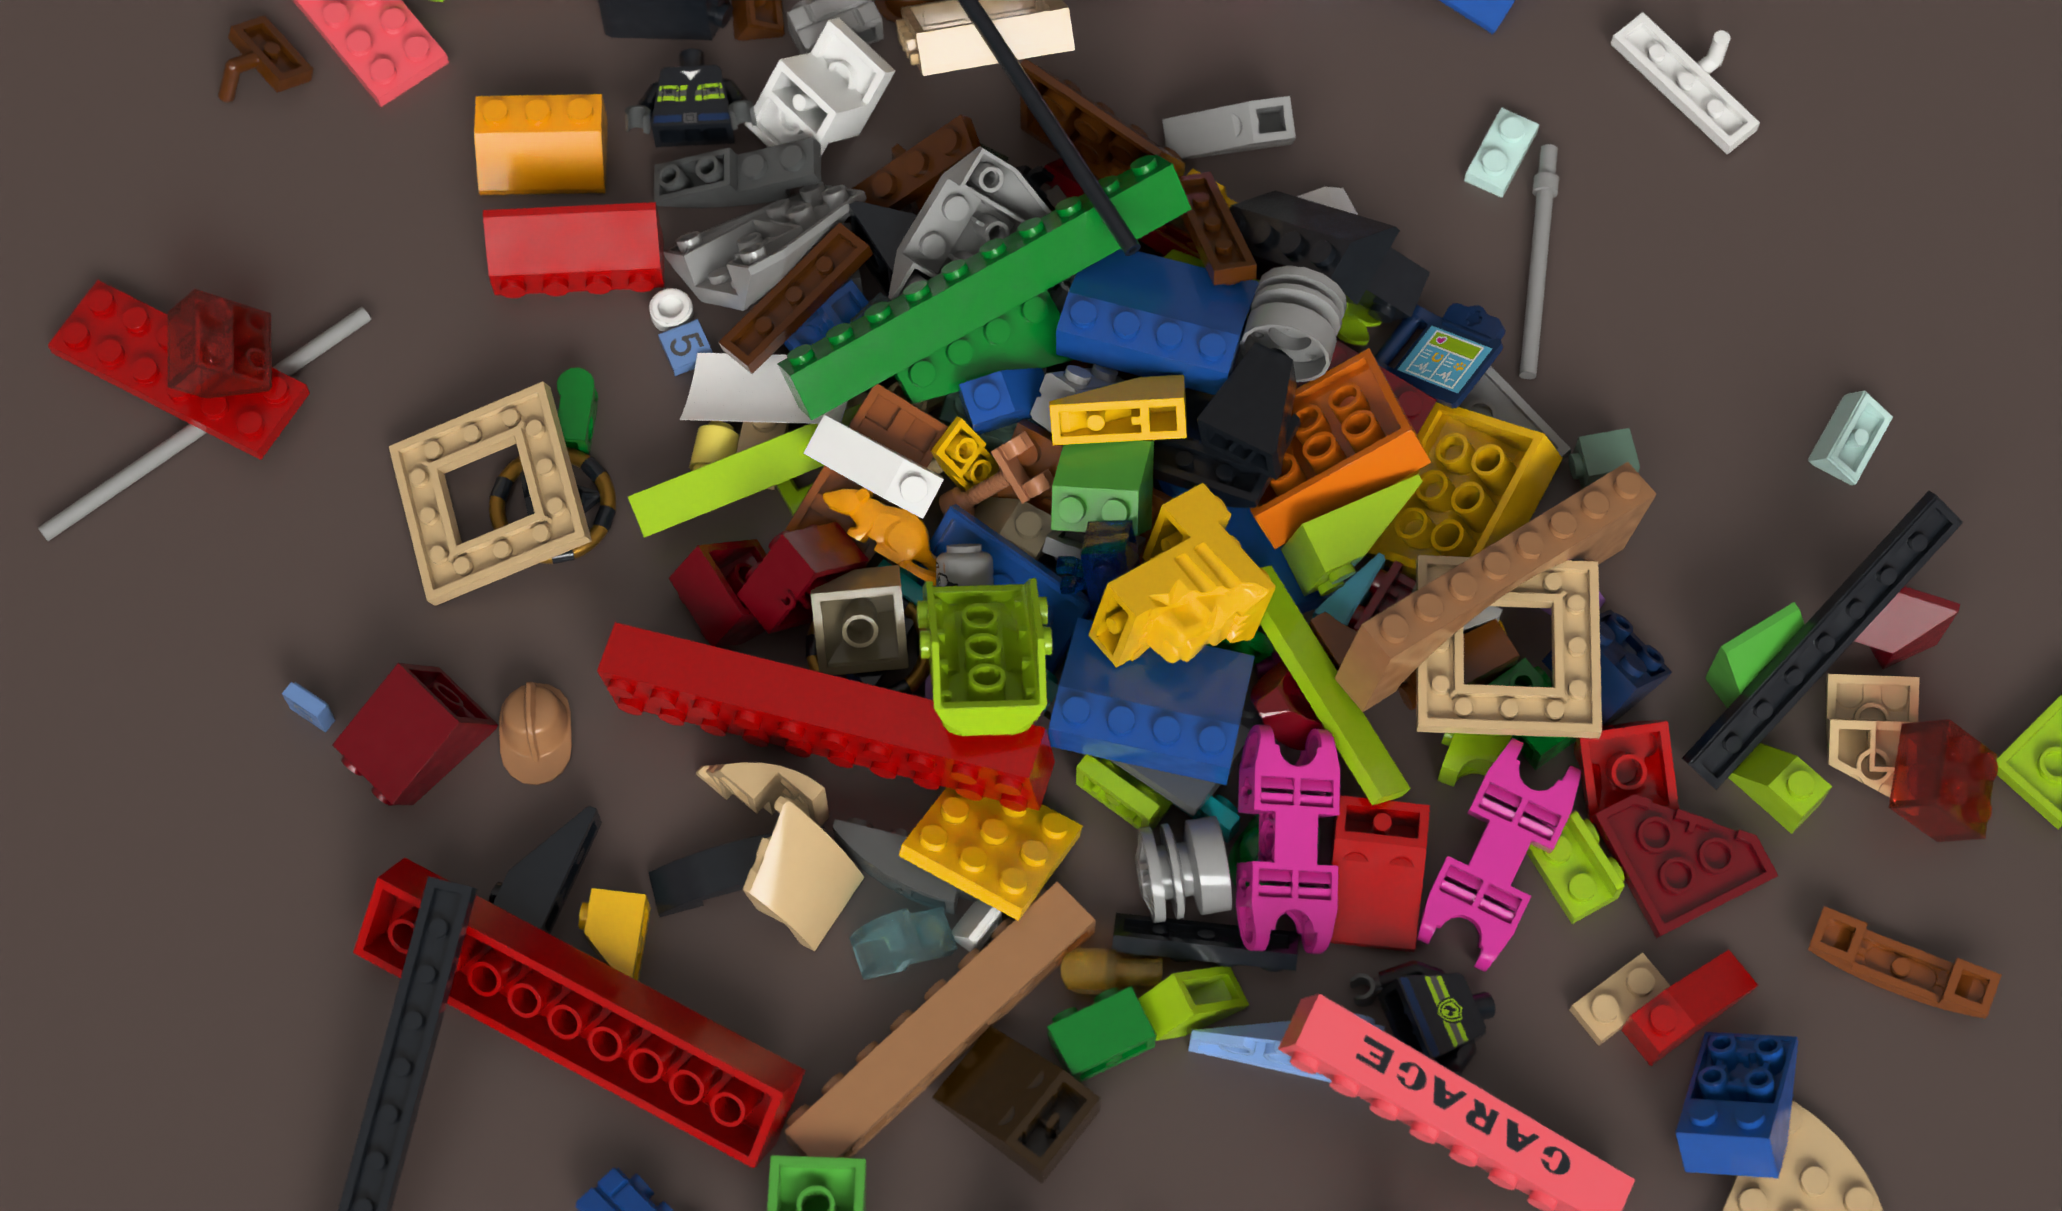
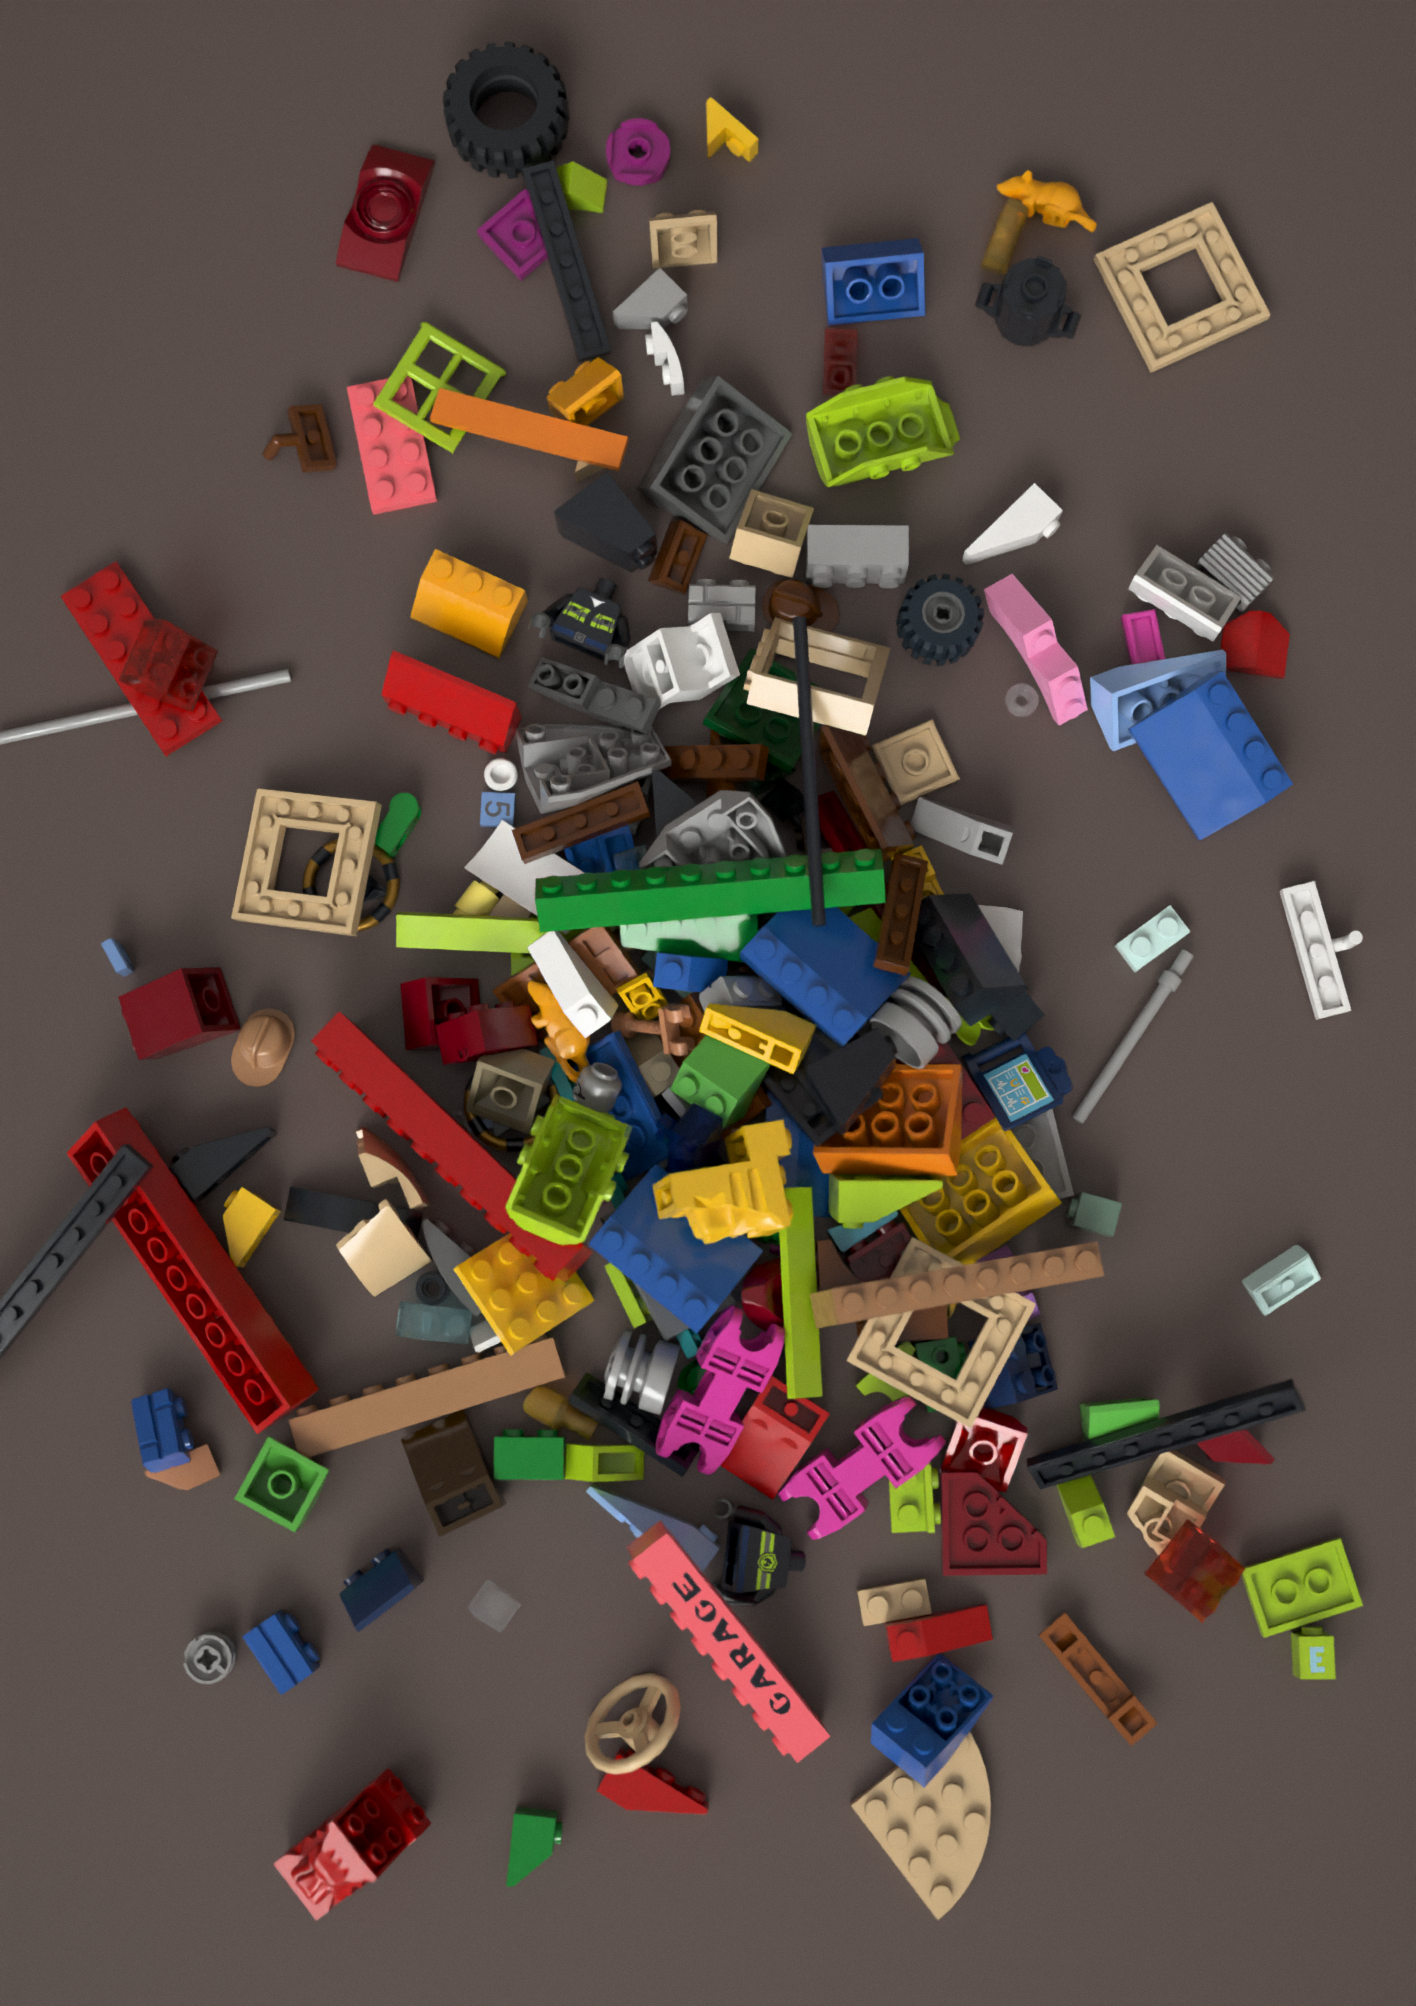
camera: 30 degrees right, 15 degrees up
(879, 892) = (424, 1295): none -> black plate
(923, 104) = (757, 725): none -> dark green plate
(1140, 87) = (915, 762): none -> tan tile

